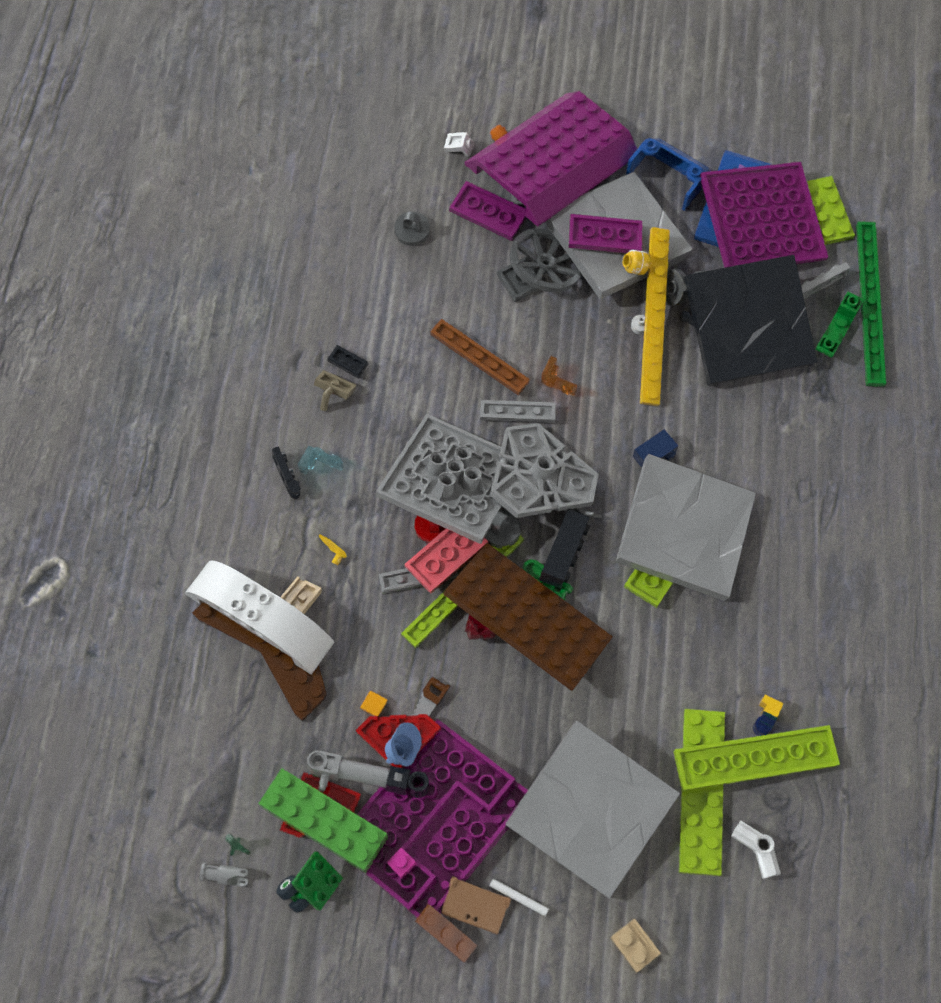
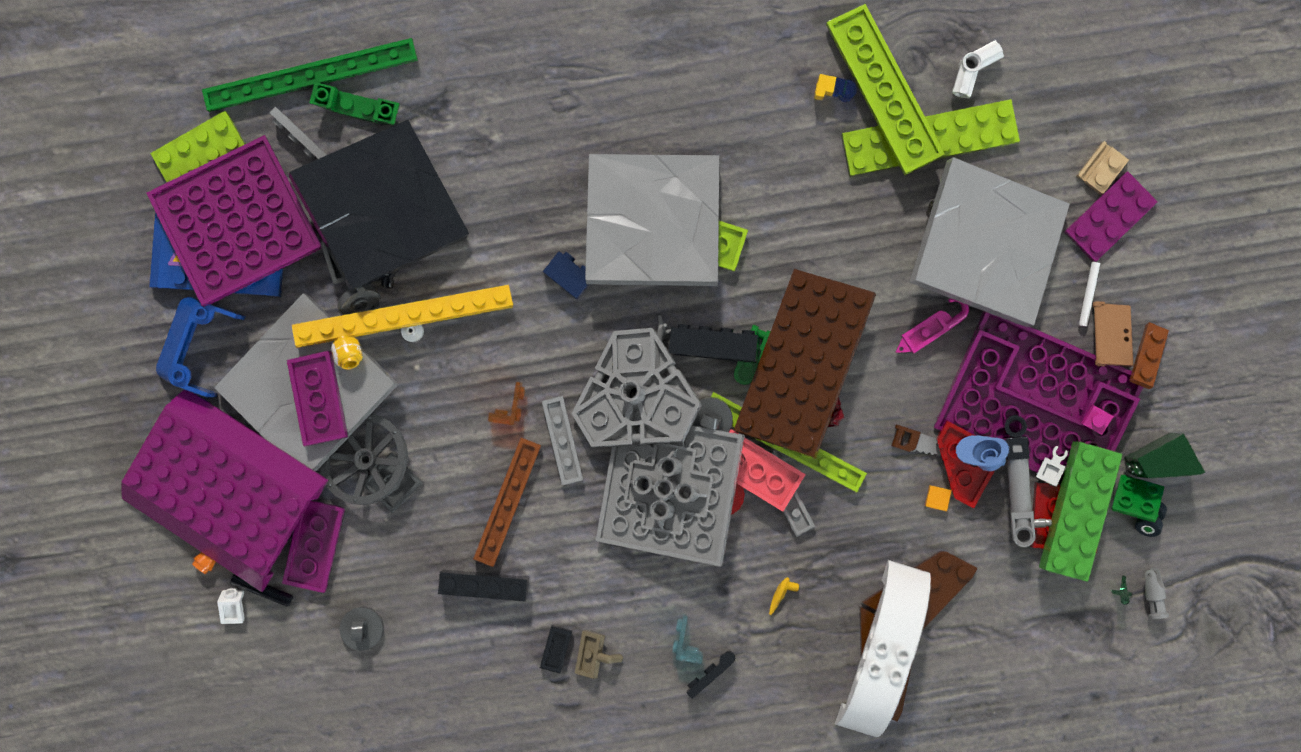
camera: 105 degrees left, 20 degrees up
(301, 594) = (849, 613): tan plate -> none
(345, 915) = (1165, 457): none -> dark green slope
(368, 809) = (1051, 469): none -> white plate
(417, 321) = (483, 585): none -> black brick
(461, 172) = (269, 592): none -> black axle
(525, 738) = (930, 329): none -> dark pink plate
(587, 939) = (1110, 216): none -> magenta plate

